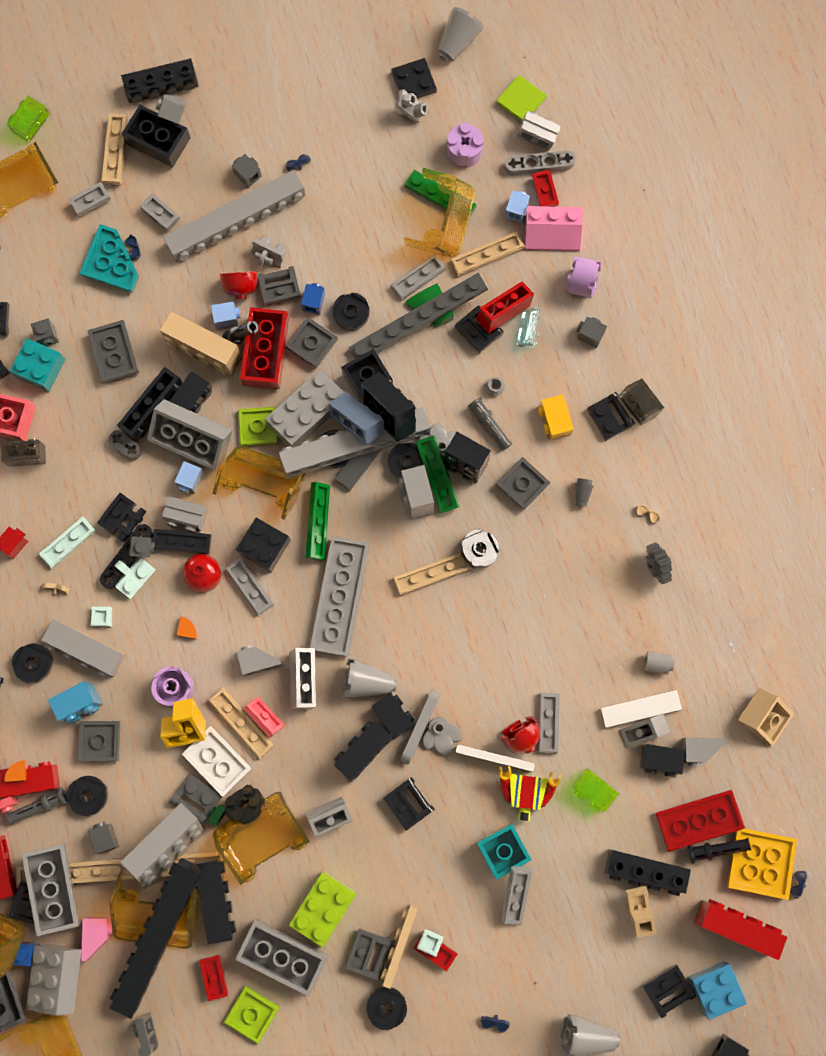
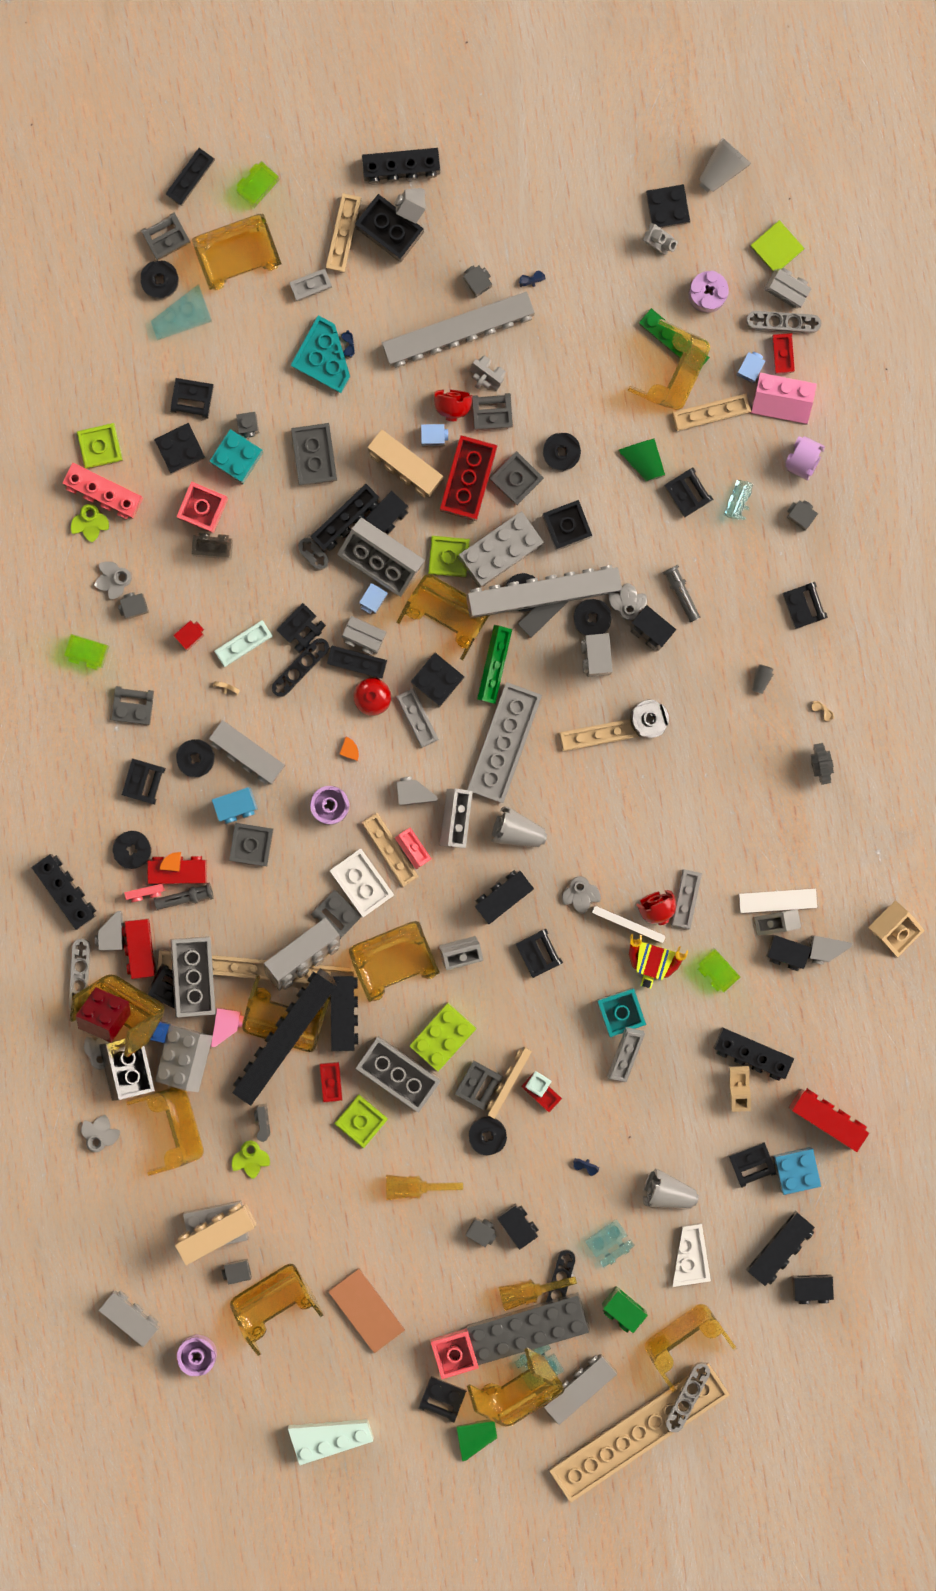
camera: 10 degrees right, 10 degrees up
(77, 800) = (236, 905): black plate -> none
(101, 616) = (267, 723): light aqua tile -> none
(103, 837) = (244, 936): dark grey brick -> none
(133, 577) = (305, 689): light aqua plate -> none
(140, 546) = (317, 662): dark grey brick -> none
(160, 212) = (381, 311): light grey plate -> none
(184, 725) = (336, 845): yellow brick -> none
(216, 815) = (354, 933): dark green plate -> none
(238, 334) = (443, 460): black pin -> none
(246, 795) = (377, 922): black plate -> none
(313, 298) = (525, 431): blue brick -> none
(356, 418) = (550, 570): sand blue brick -> none
(391, 405) = (584, 565): black brick -> none
(393, 716) = (538, 868): black brick -> none
(418, 277) = (636, 425): light grey tile -> none
(420, 316) = (629, 472): dark grey plate -> none
(420, 727) = (562, 882): light grey beam -> none
(437, 474) = (621, 637): green plate -> none
(495, 380) = (699, 550): light grey plate -> none
(505, 307) = (718, 476): red brick -> none
(523, 483) = (704, 660): dark grey plate -> none
(556, 417) = (749, 598): yellow brick -> none
(641, 401) = (837, 597): clear smoke brick -> none
(658, 663) = (803, 859): light grey brick -> none
(700, 820) = (812, 1015): red tile -> none
(708, 851) = (814, 1044): black pin -> none
(766, 867) = (863, 1063): yellow plate -> none
(801, 877) = (898, 1082): dark blue piece -> none

